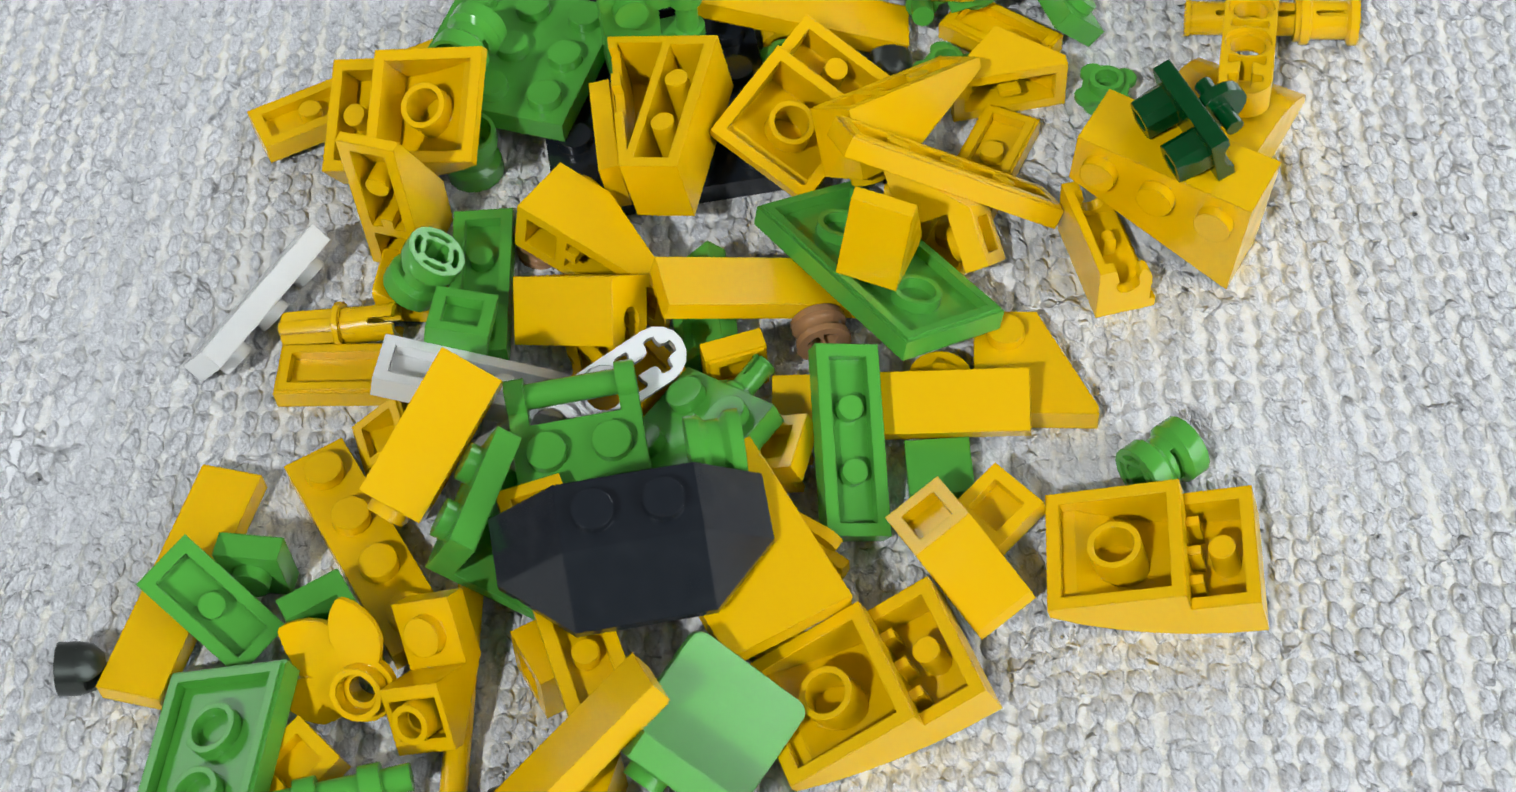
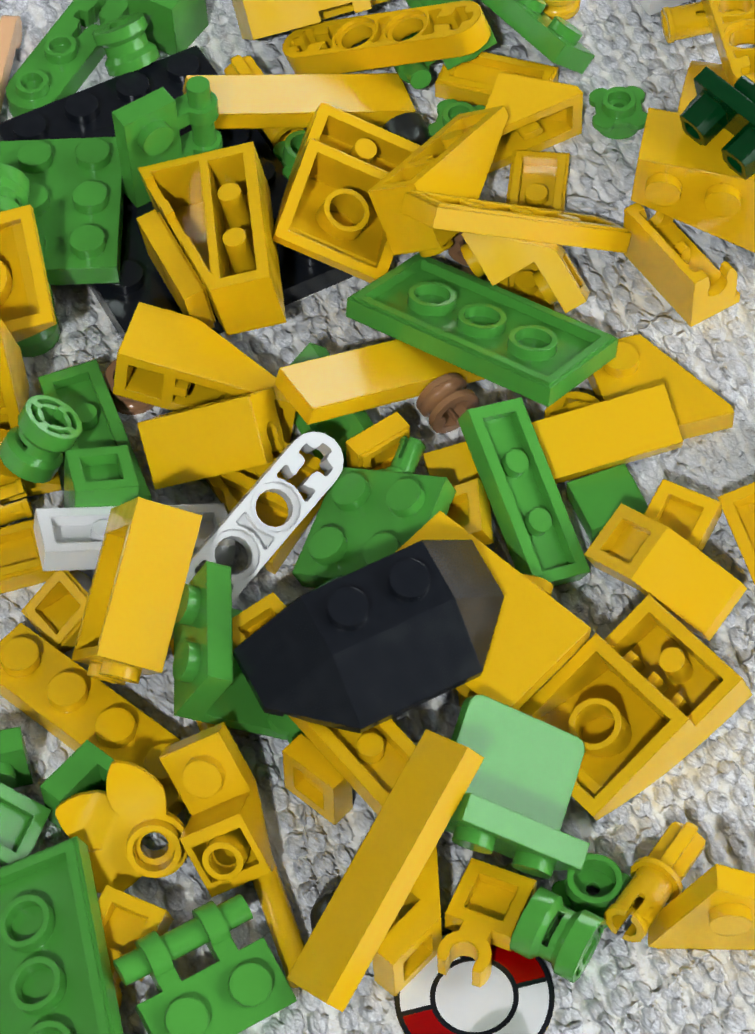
camera: 20 degrees left, 0 degrees up
(580, 445) = (285, 561): bright green plate -> none
(716, 440) = (423, 518): bright green wheel -> none
(879, 238) = (487, 297): yellow slope -> none

